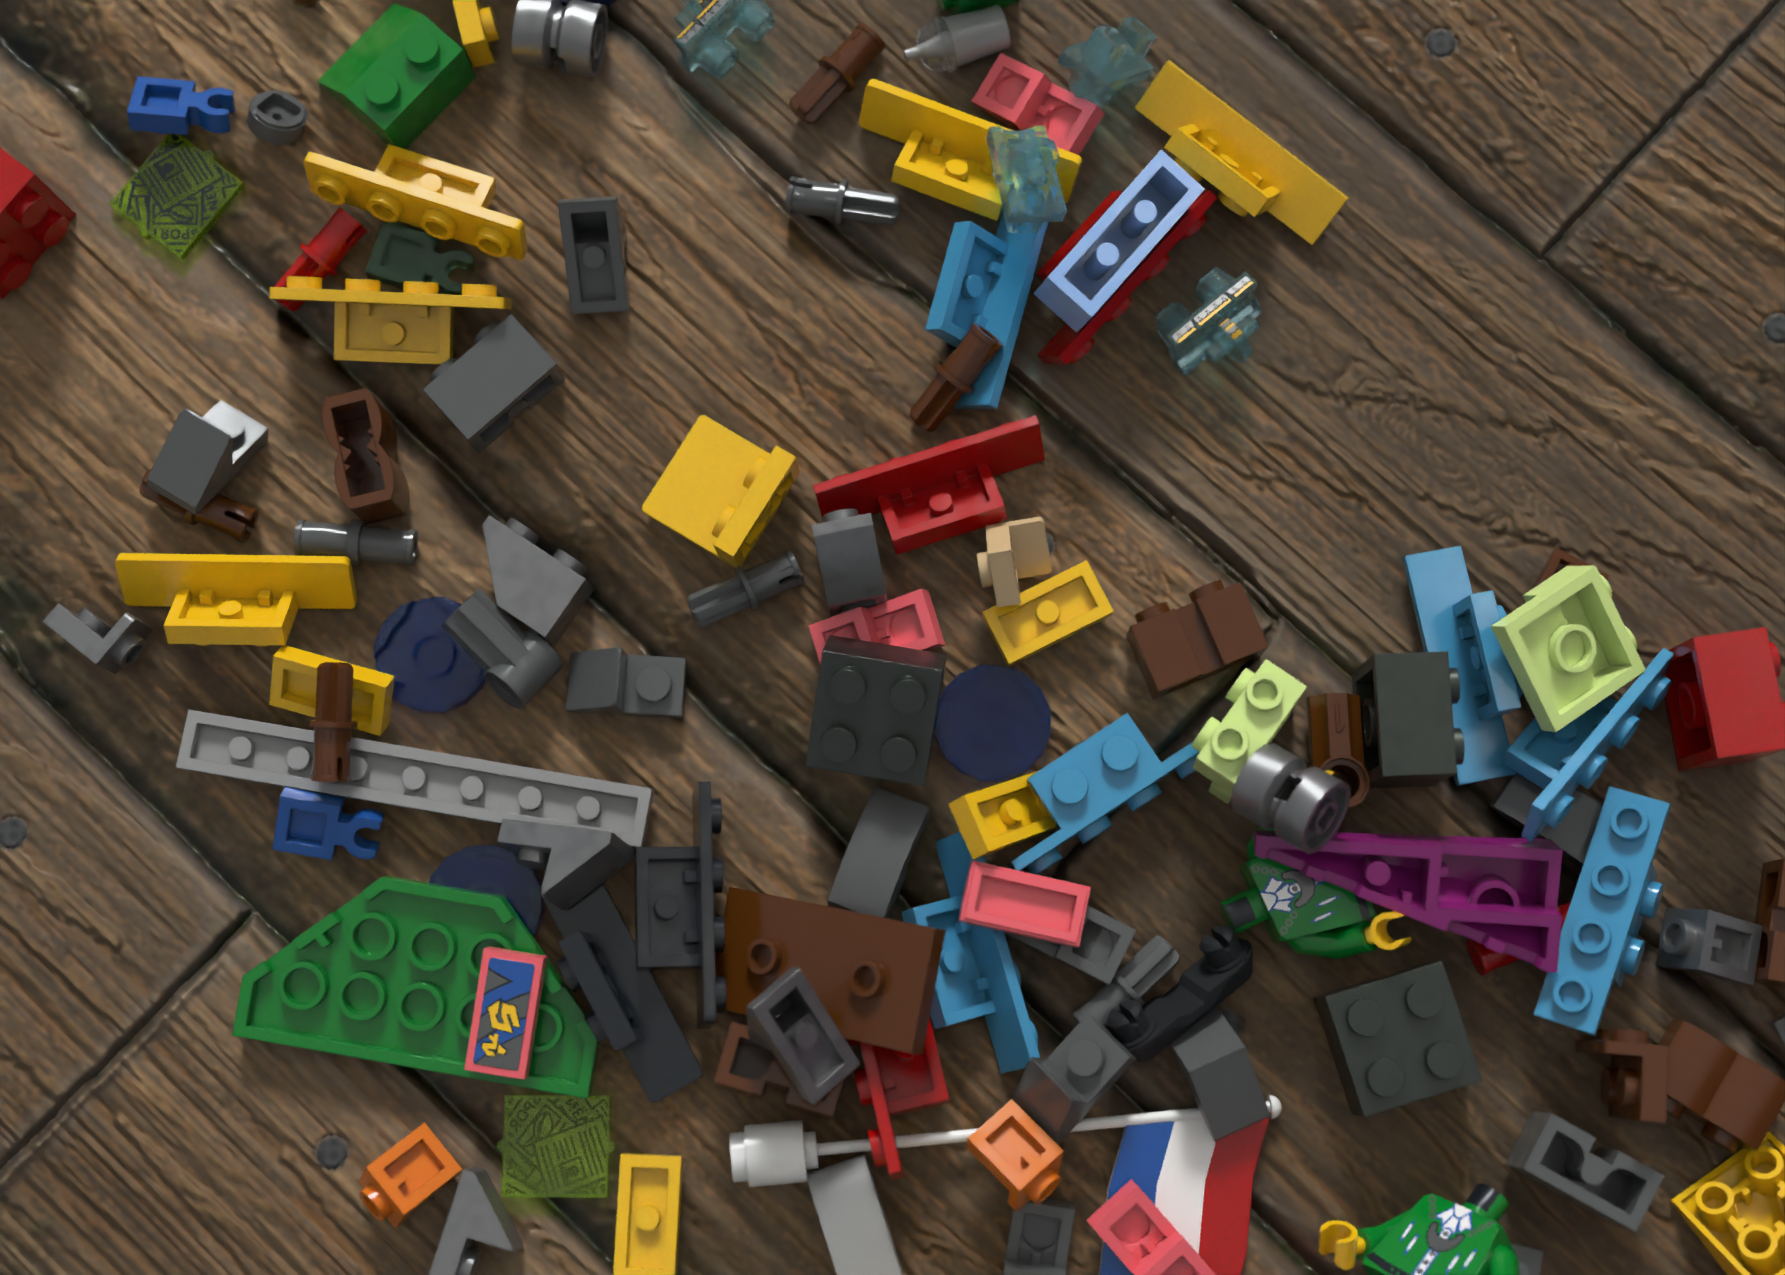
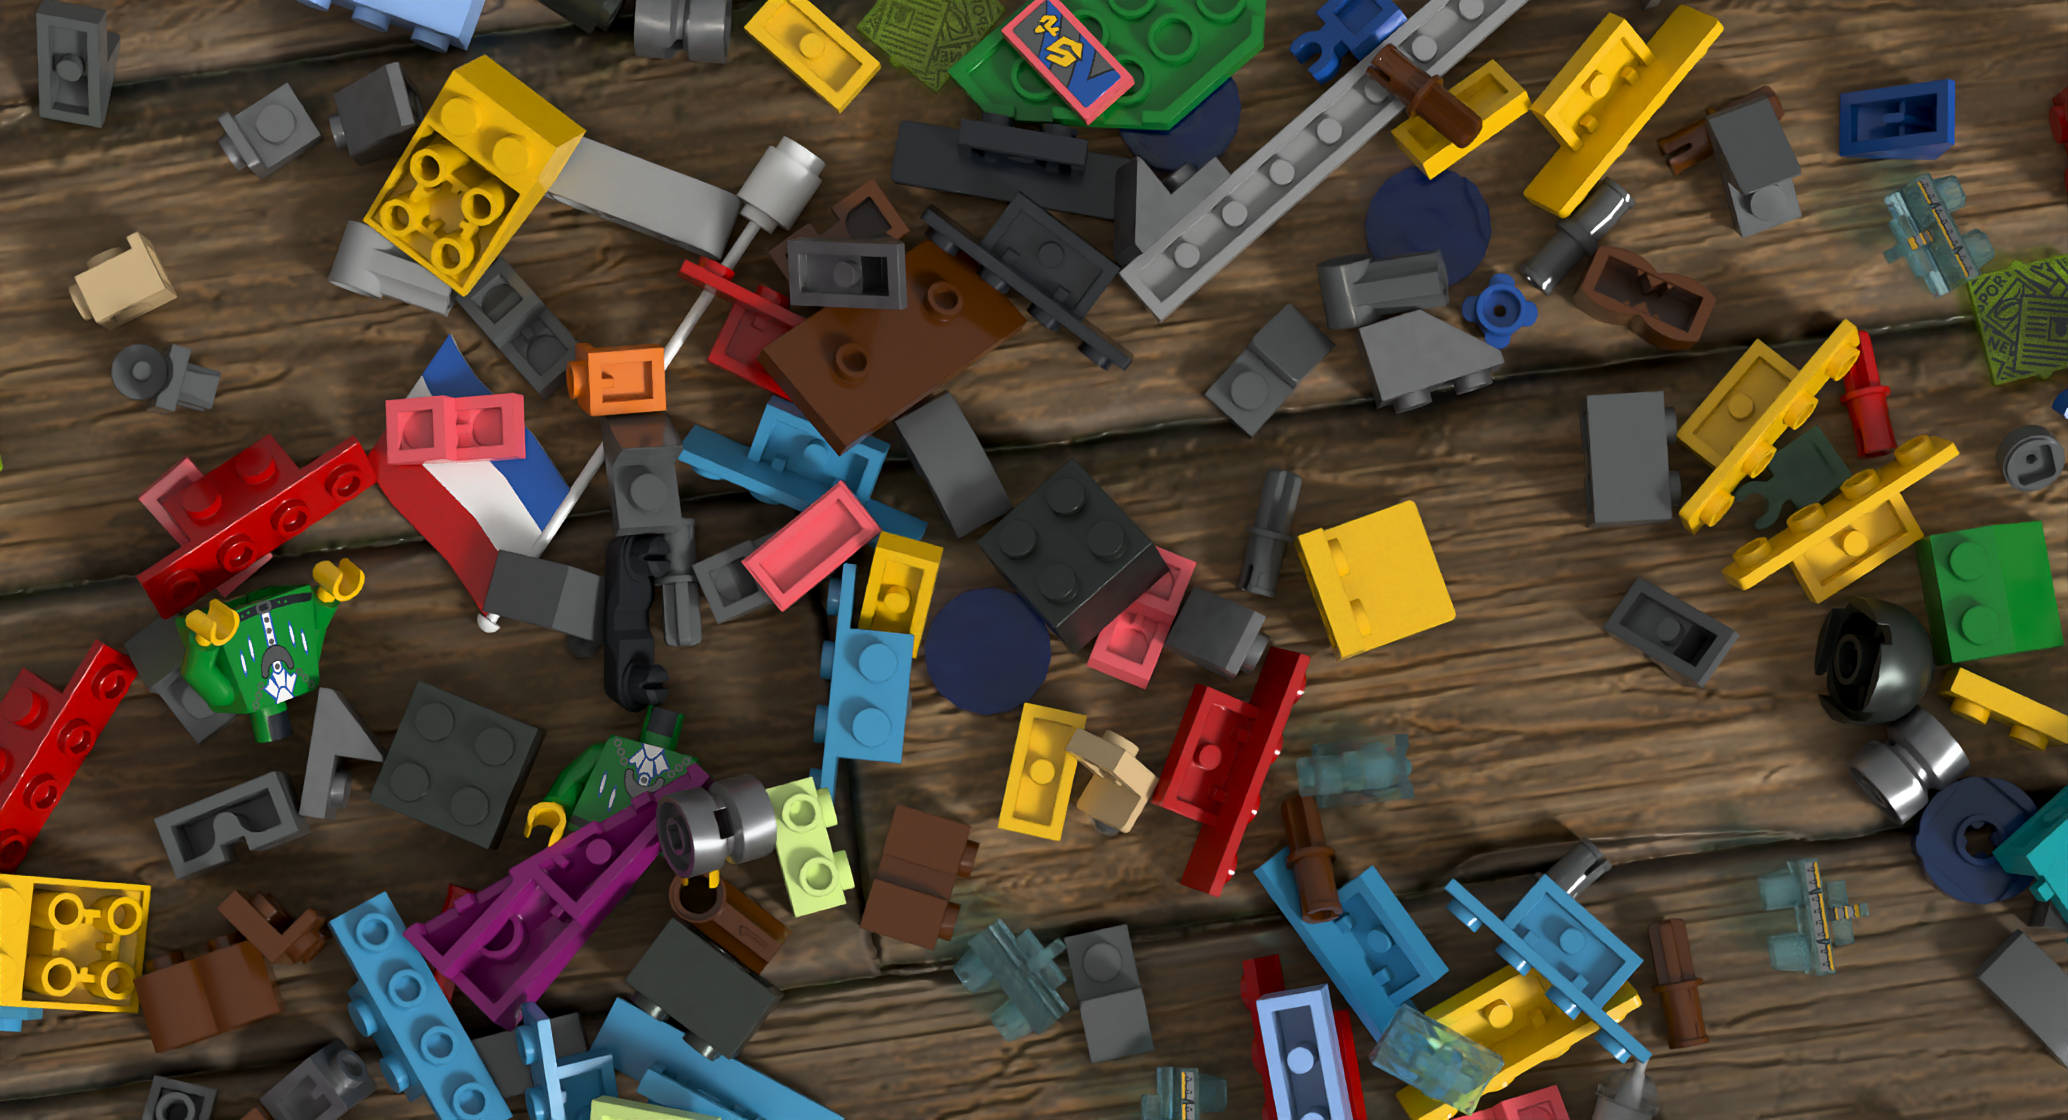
camera: 125 degrees right, 5 degrees up
(95, 381) = (1898, 121): none -> blue slope
(165, 298) = (1931, 237): none -> clear light blue hips
(442, 544) = (1499, 293): none -> blue plate
(506, 109) = (1873, 661): none -> pearl dark grey cylinder
(866, 391) = (1357, 771): none -> clear light blue hips
(875, 148) = (1567, 949): none -> dark azure bracket
(1161, 447) = (1109, 993): none -> dark grey slope
(1199, 513) = (1023, 972): none -> clear light blue hips
(1449, 1147) = (335, 735): none -> flat silver slope

